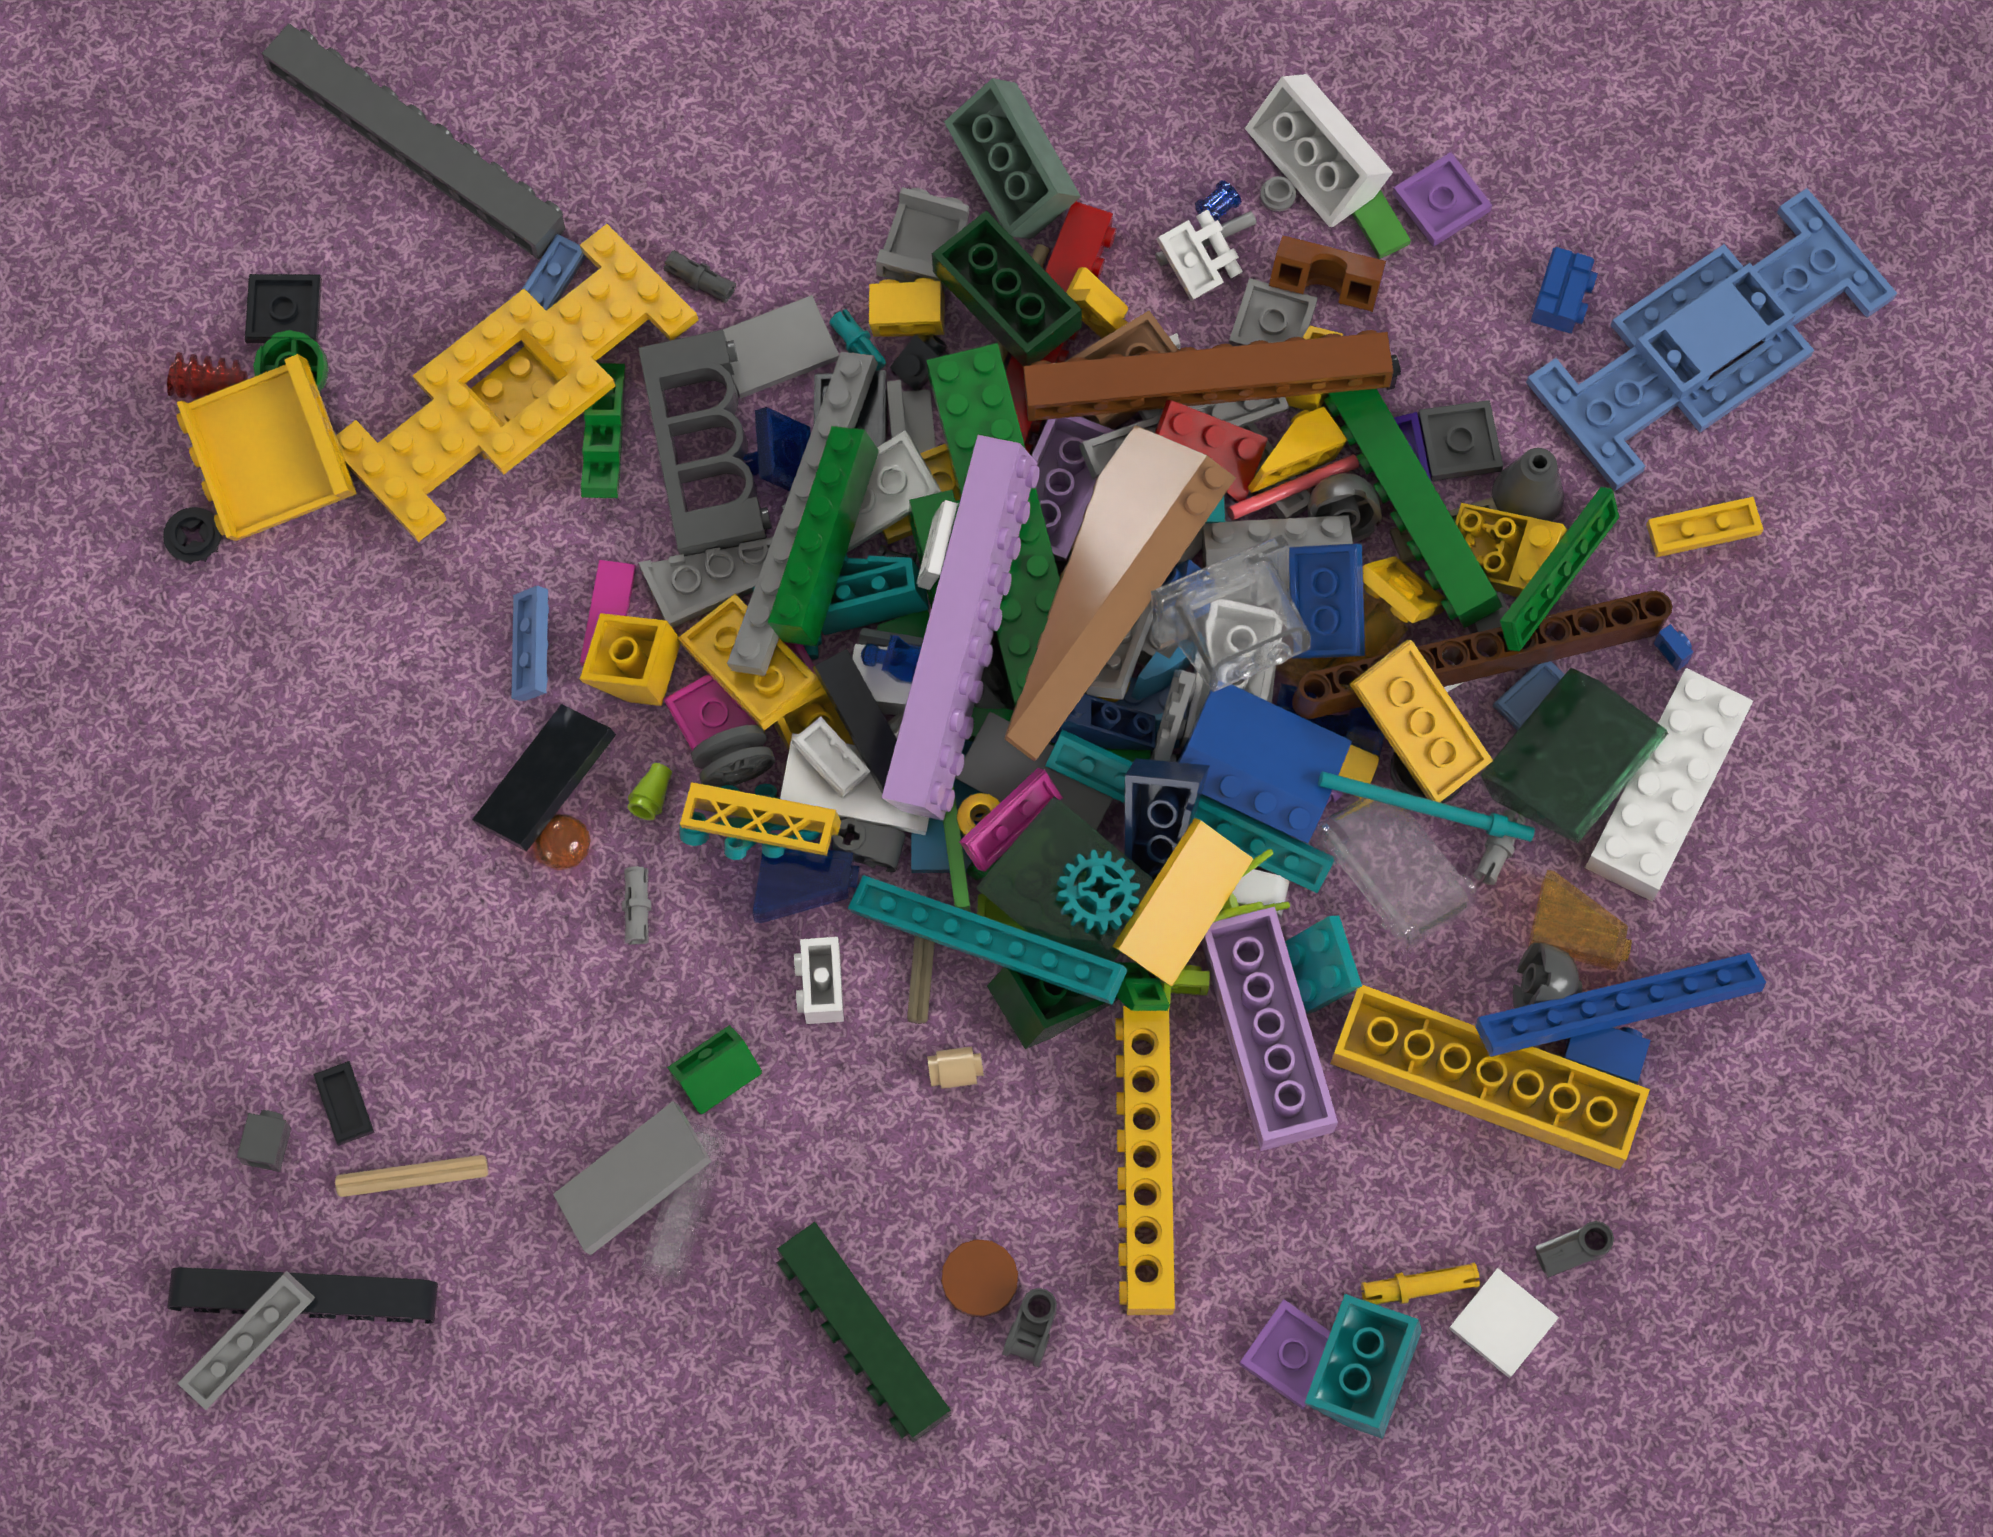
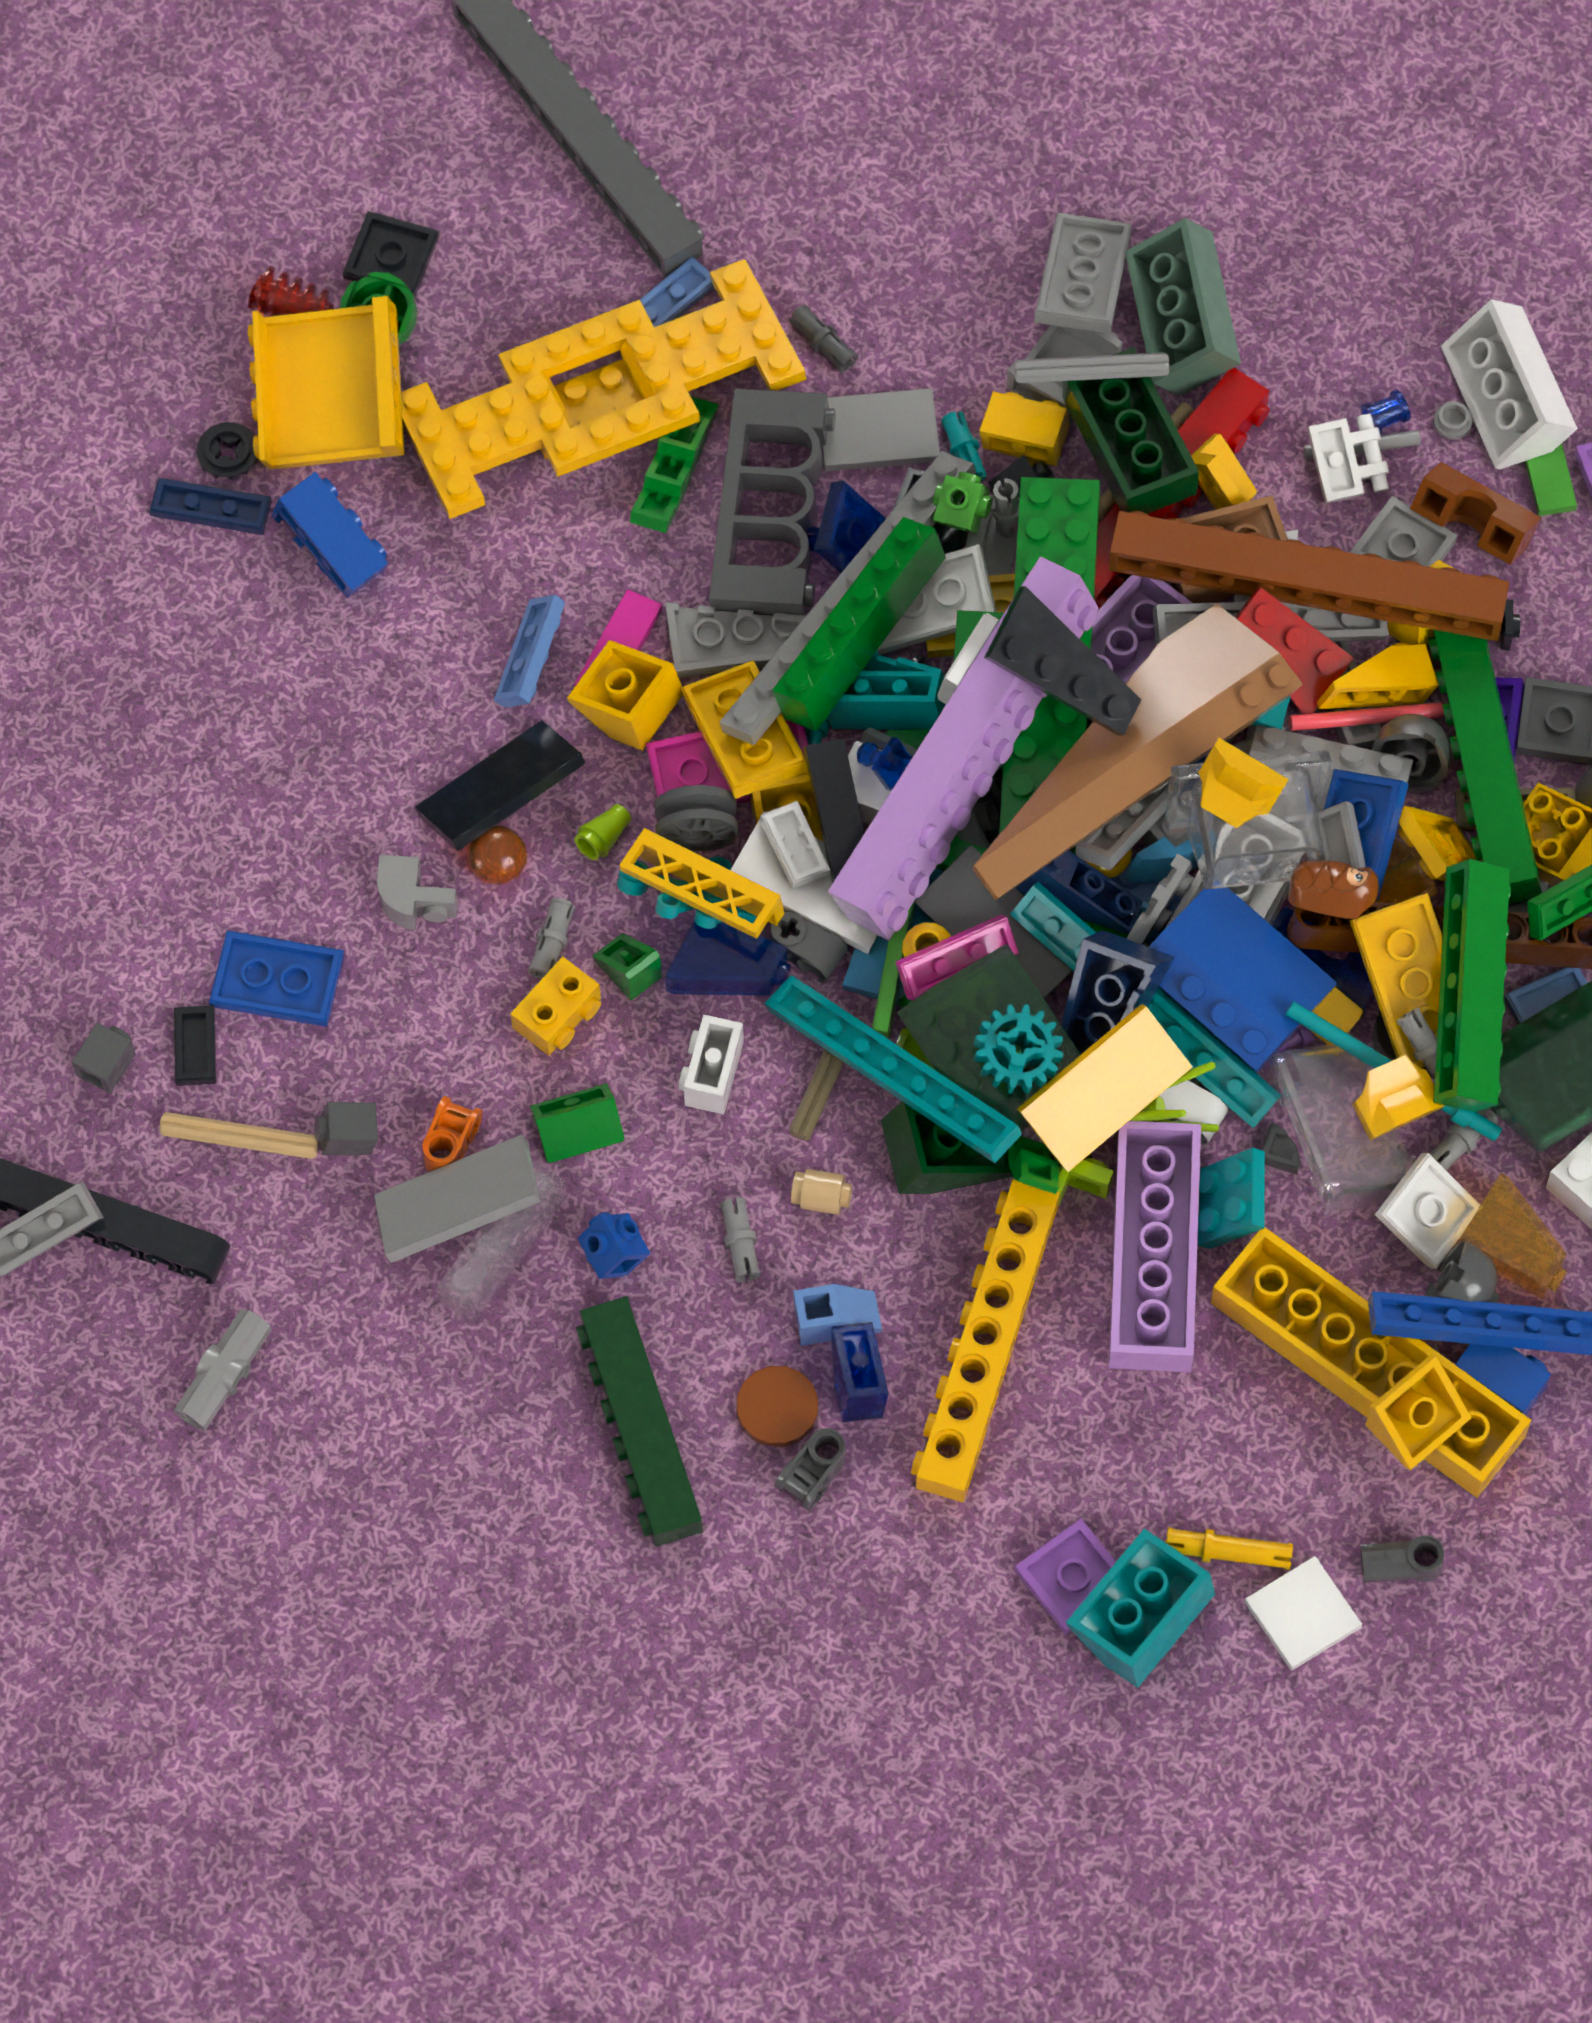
camera: 20 degrees right, 5 degrees down
(193, 591) = (210, 506): none -> dark blue tile
(315, 588) = (331, 534): none -> blue wedge
(398, 1017) = (276, 978): none -> blue tile
(468, 1402) = (222, 1369): none -> light grey piece
(489, 908) = (404, 898): none -> light grey brick
(509, 1141) = (347, 1128): none -> dark grey brick
(604, 1112) = (450, 1130): none -> orange piece
(662, 968) = (557, 1007): none -> yellow brick
(714, 908) = (630, 964): none -> green slope
(785, 1175) = (613, 1245): none -> blue brick
(892, 395) = (969, 513): none -> bright green brick
(896, 1134) = (740, 1239): none -> light grey pin
(913, 152) = (1083, 273): none -> light grey tile
(917, 388) = (1006, 507): none -> light grey pin
(956, 240) = (1091, 367): none -> light grey axle
(1005, 1178) = (830, 1306): none -> medium blue slope
(1022, 528) = (1054, 660): none -> black wing
(1044, 1227) = (858, 1372): none -> clear blue slope
(1217, 592) = (1237, 785): none -> yellow slope
(1319, 616) = (1341, 835): none -> light grey tile
(1327, 660) = (1333, 888): none -> dark orange piece
(1345, 904) = (1280, 1150): none -> dark grey tile
(1439, 832) = (1395, 1097): none -> yellow slope
(1452, 778) = (1421, 1038): none -> light grey pin
(1475, 711) = (1472, 985): none -> green brick
(1494, 922) = (1428, 1210): none -> white tile
(1554, 1117) = (1418, 1413): none -> yellow slope

